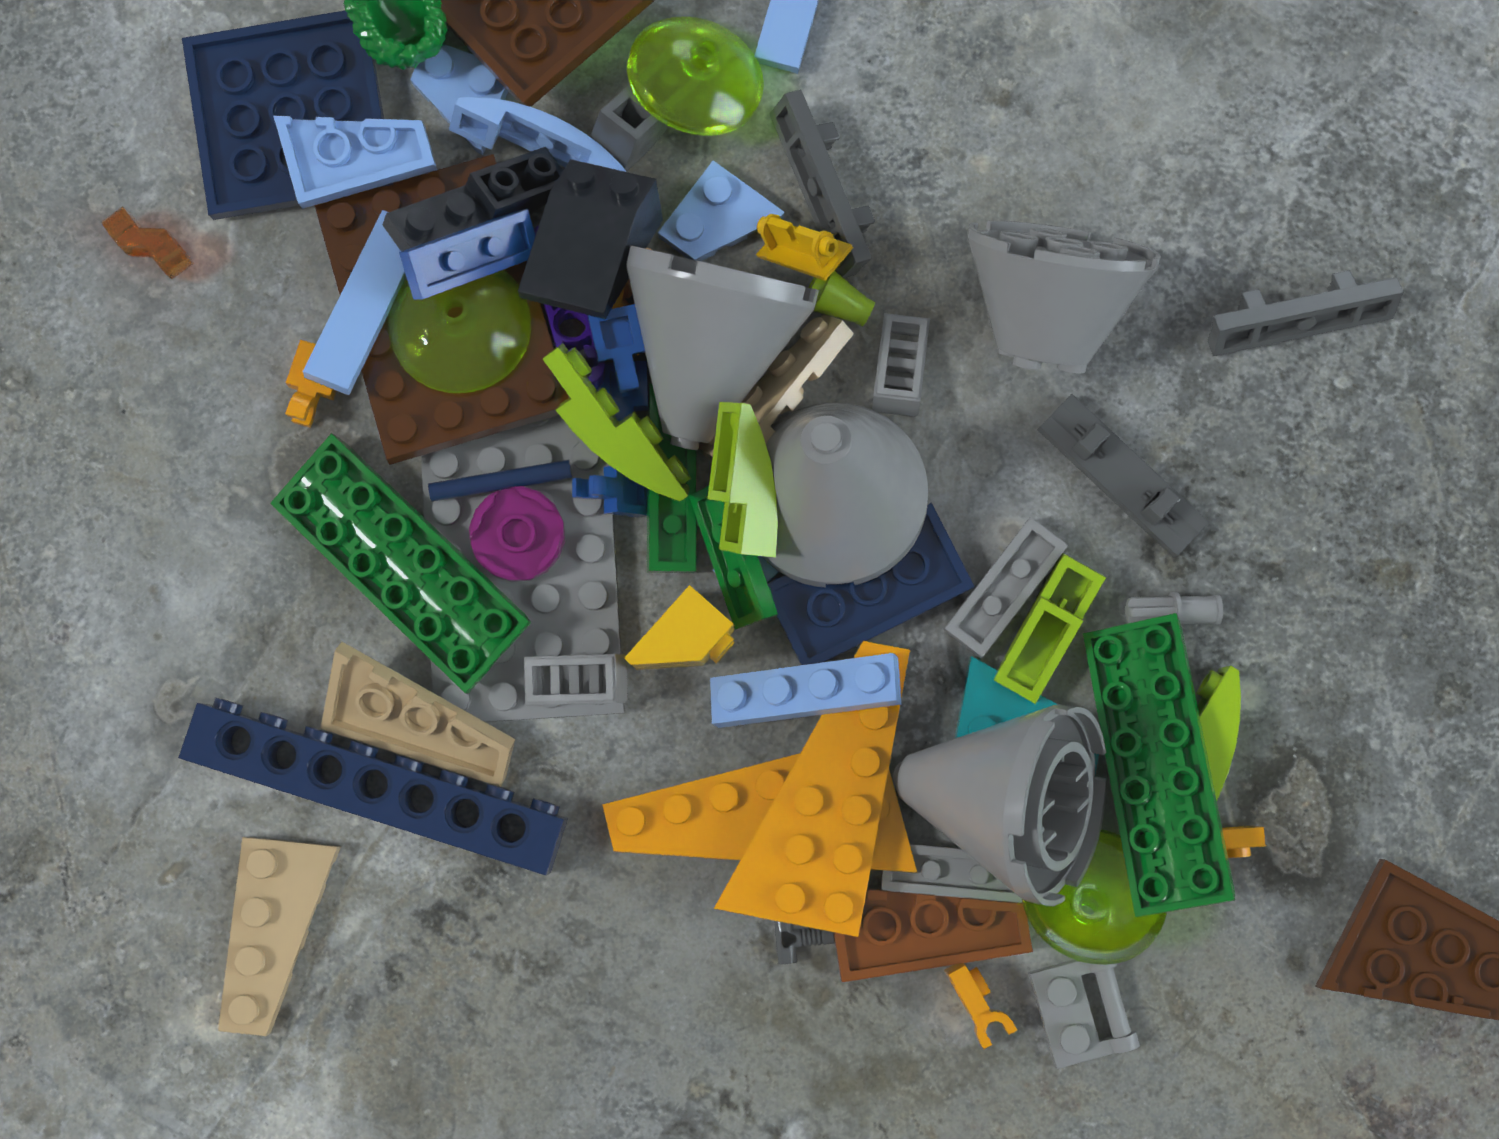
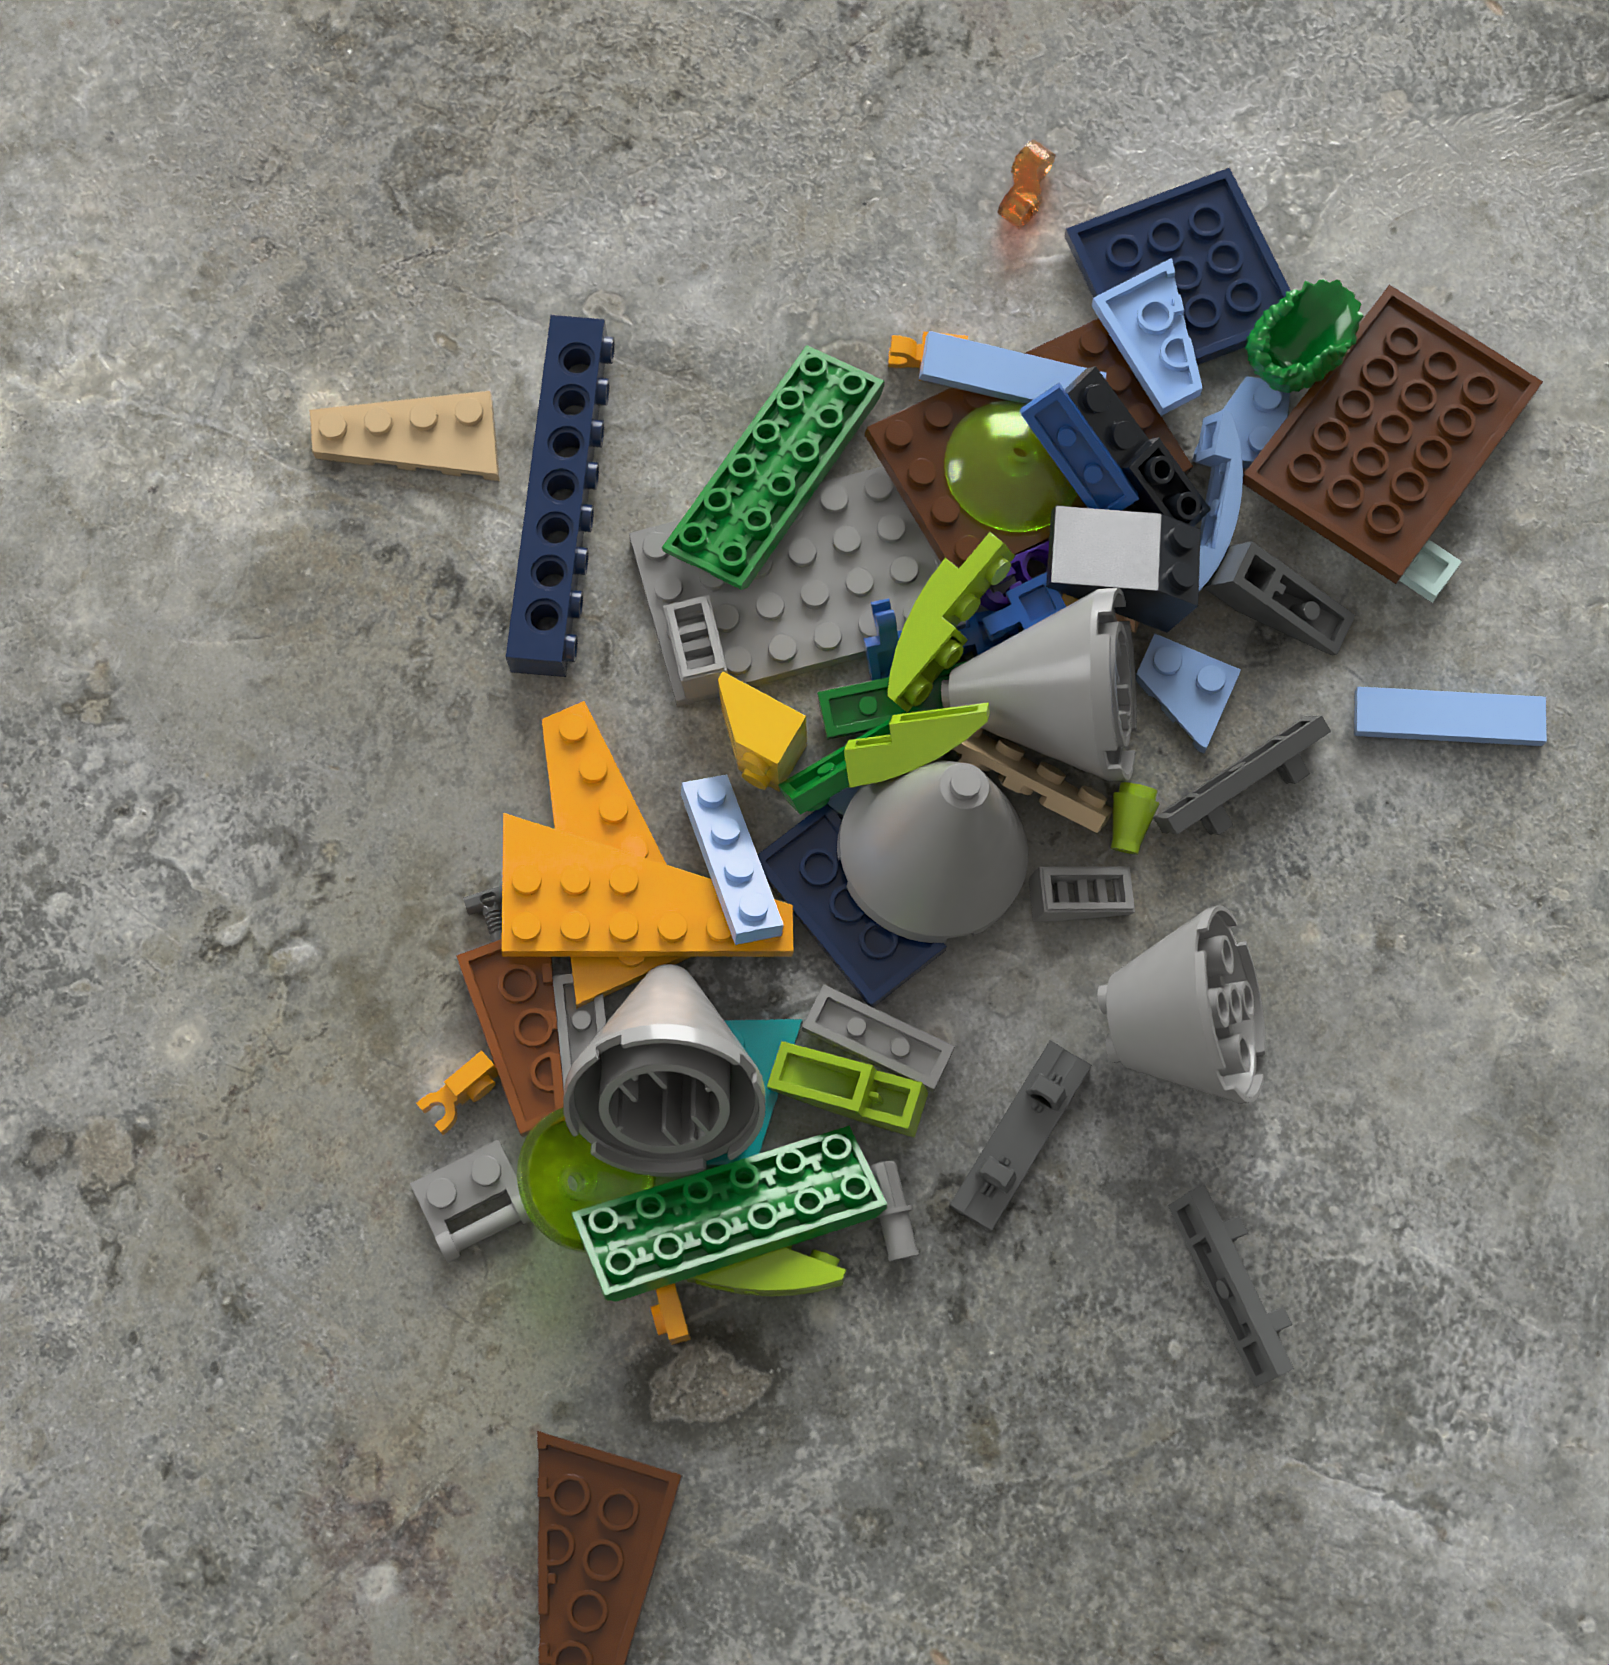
camera: 80 degrees right, 10 degrees down
(402, 717) = (628, 503): tan wing -> none
(500, 480) = (873, 538): dark blue bar -> none
(517, 534) = (825, 564): magenta tile -> none
(695, 75) = (1299, 634): clear neon green dish -> none
(800, 247) = (1172, 765): yellow hinge -> none

